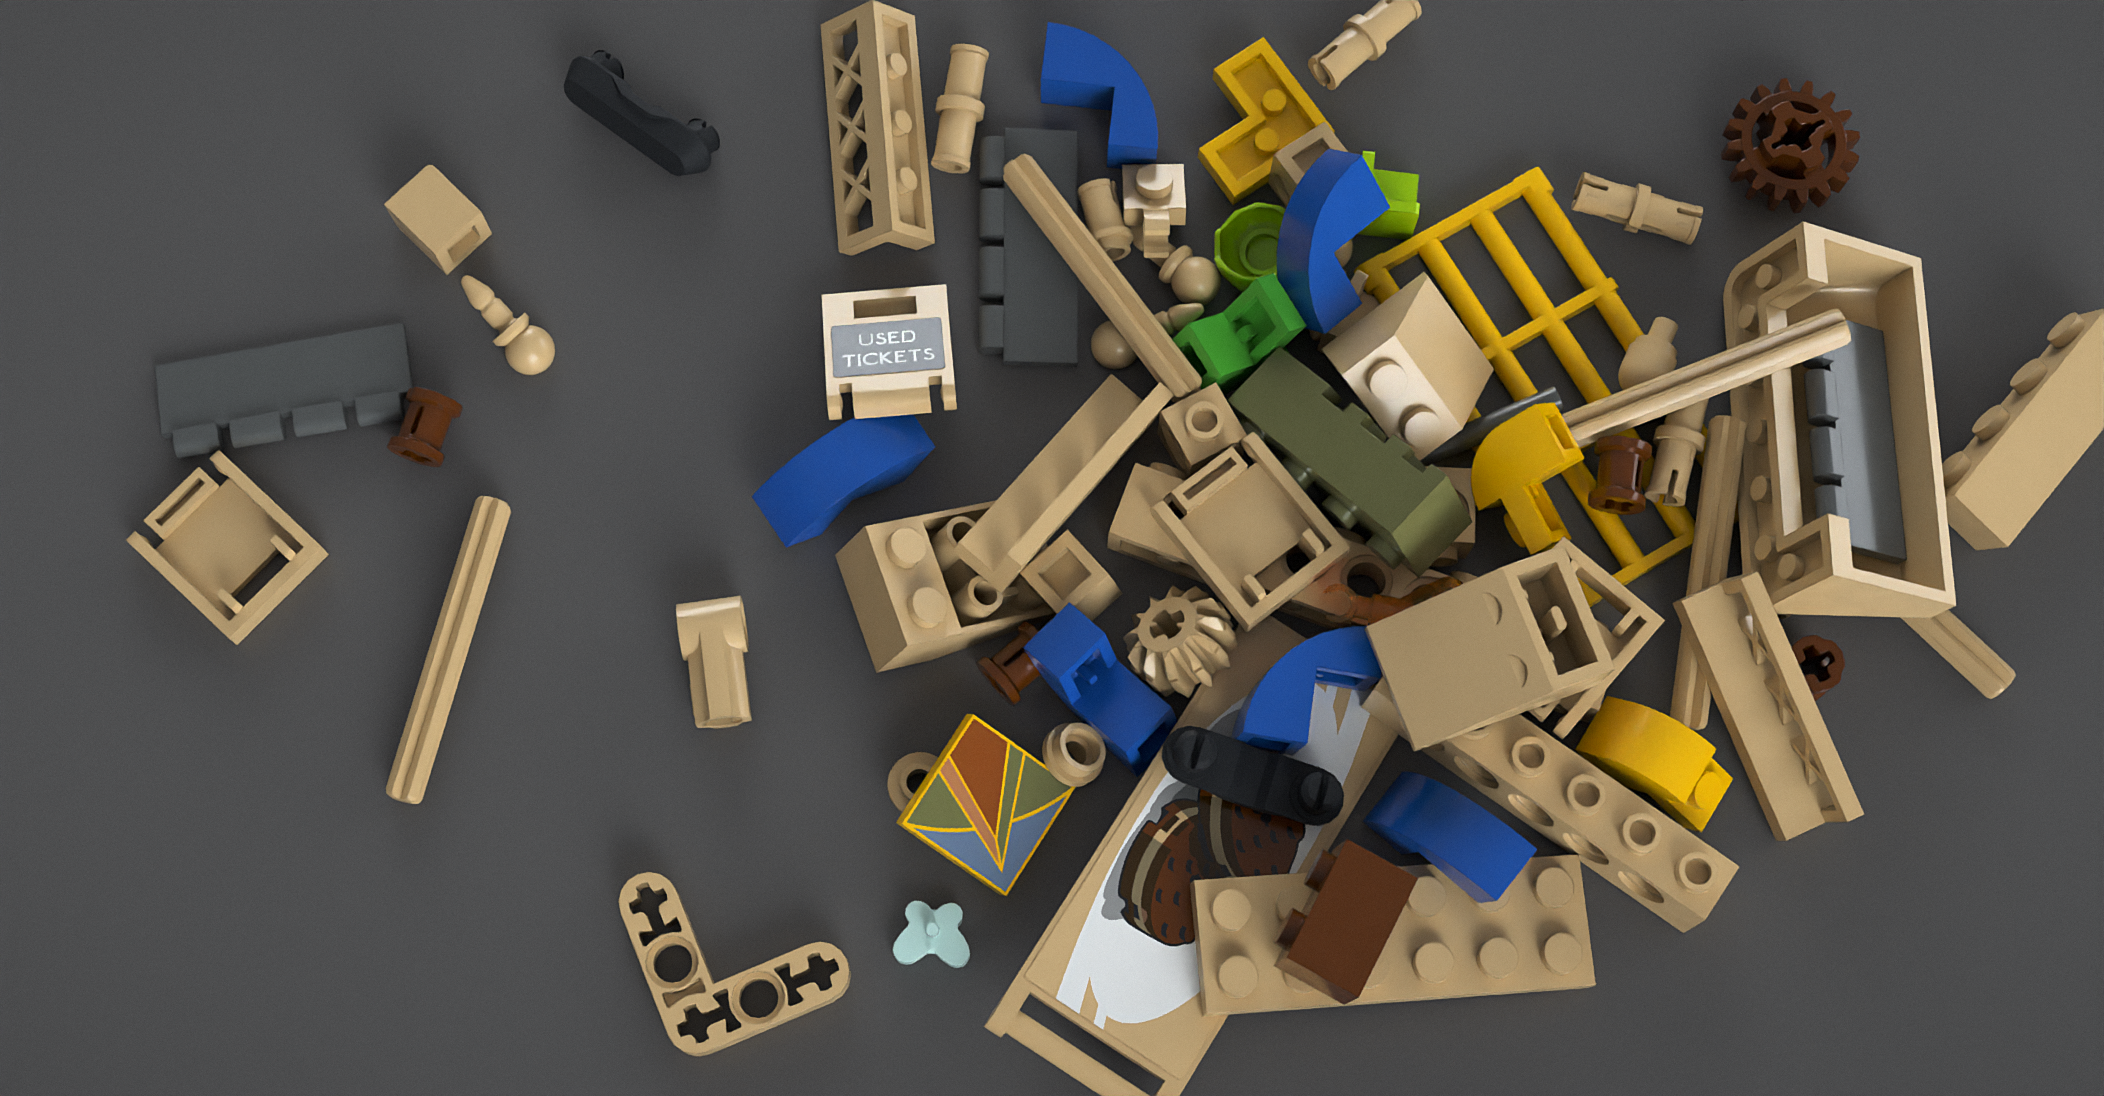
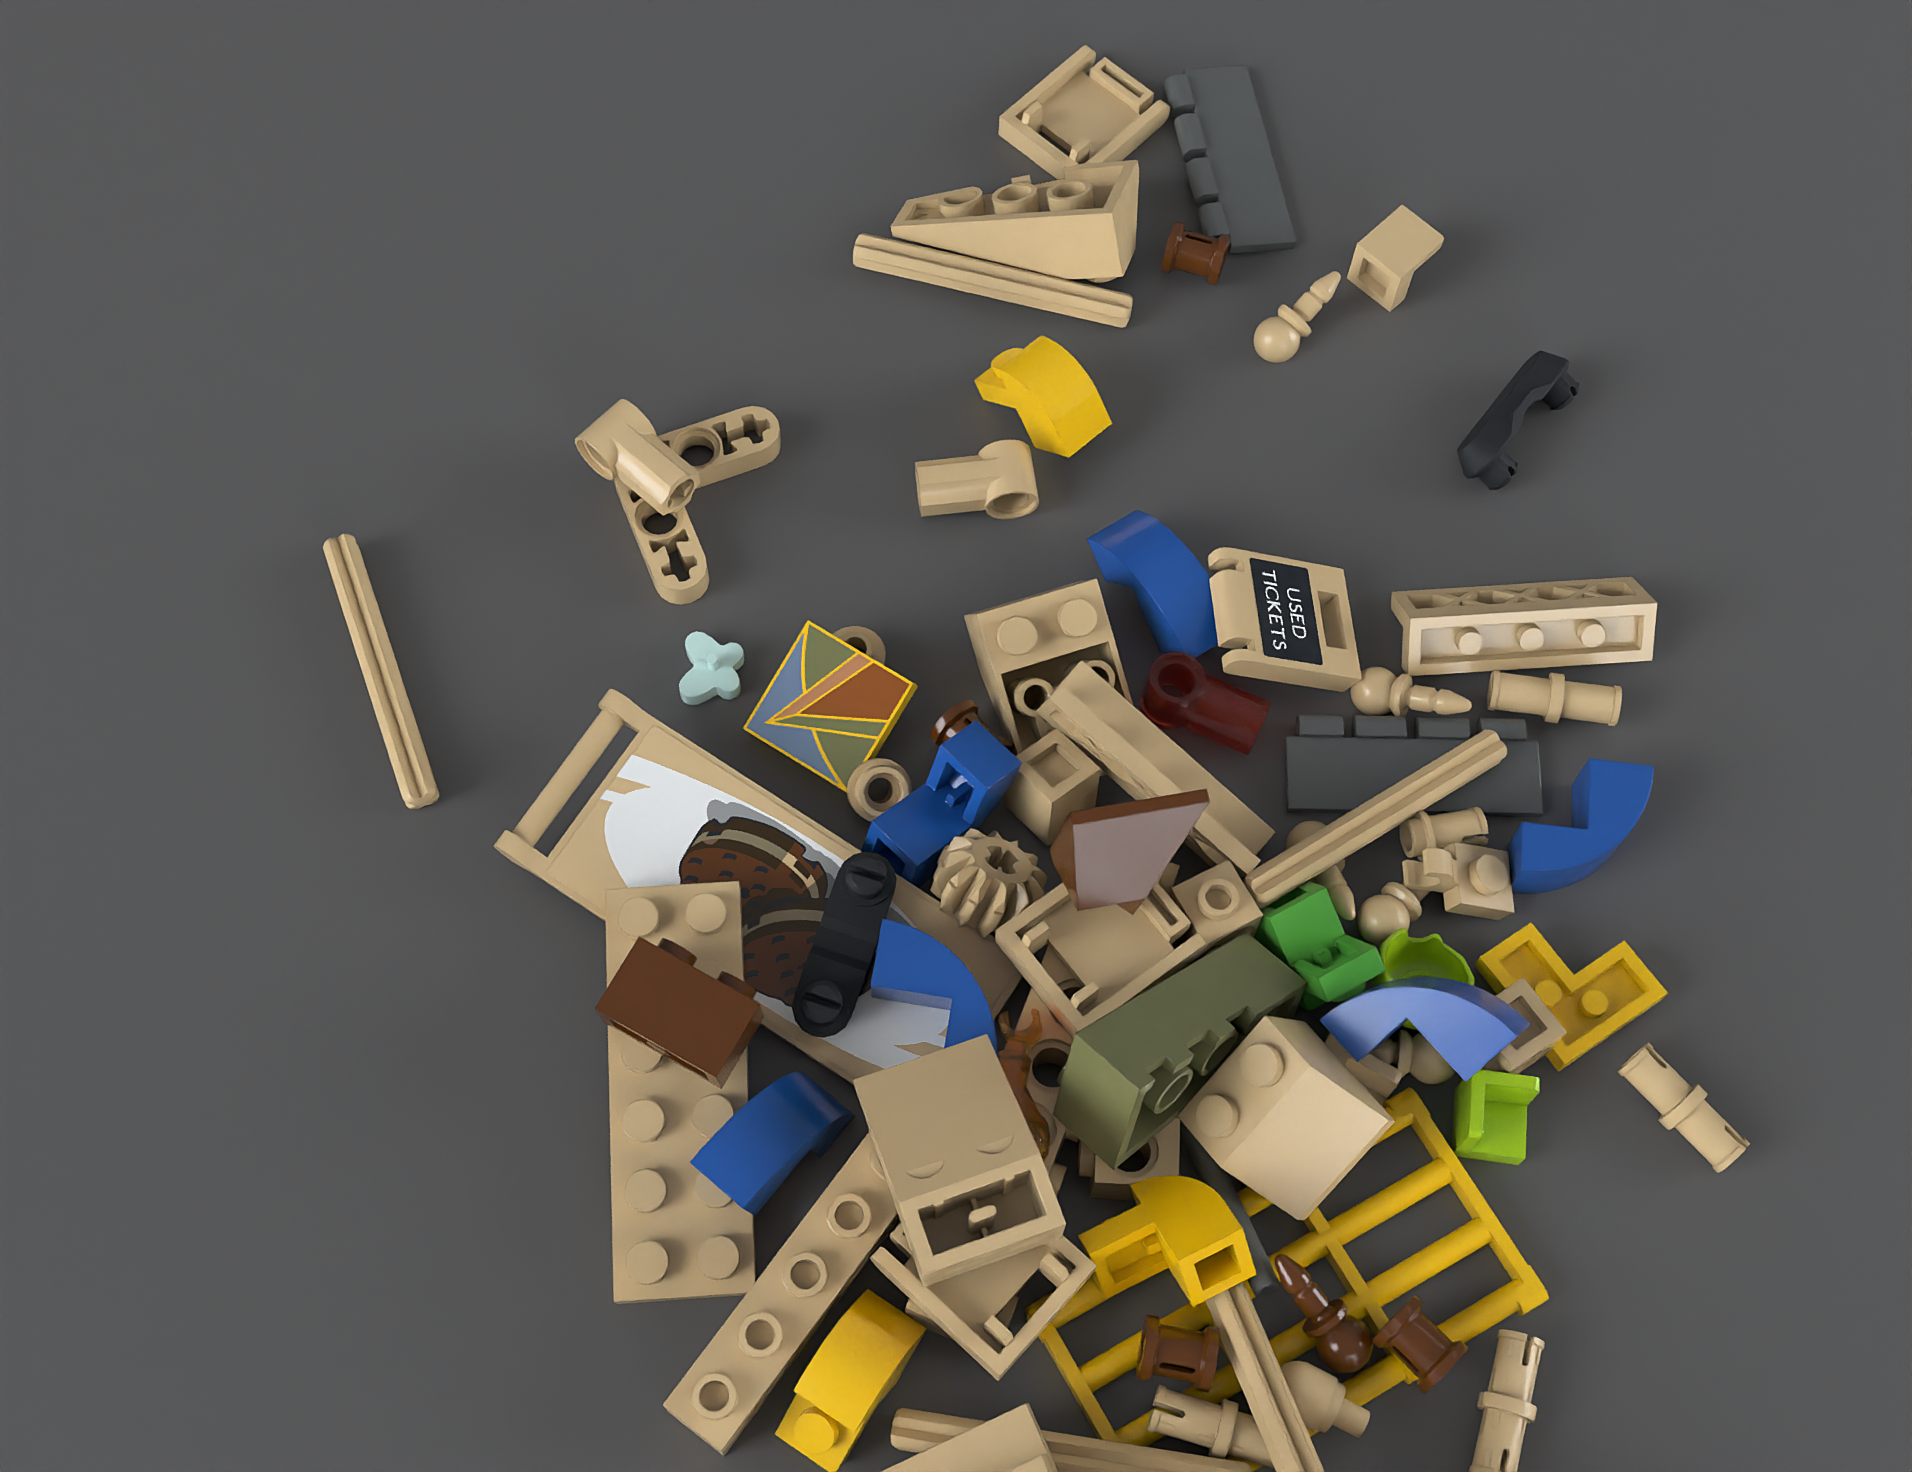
camera: 90 degrees right, 10 degrees down
(383, 587) = (1054, 227): none -> tan wedge
(610, 585) = (1049, 394): none -> yellow brick
(687, 1031) = (627, 447): none -> tan piece
(953, 261) = (1384, 692): none -> tan bar
(977, 434) = (1207, 705): none -> clear red piece
(1189, 492) = (1123, 848): none -> slope
(1590, 341) = (1340, 1338): none -> reddish brown bar
(1599, 271) = (1420, 1344): none -> reddish brown bush

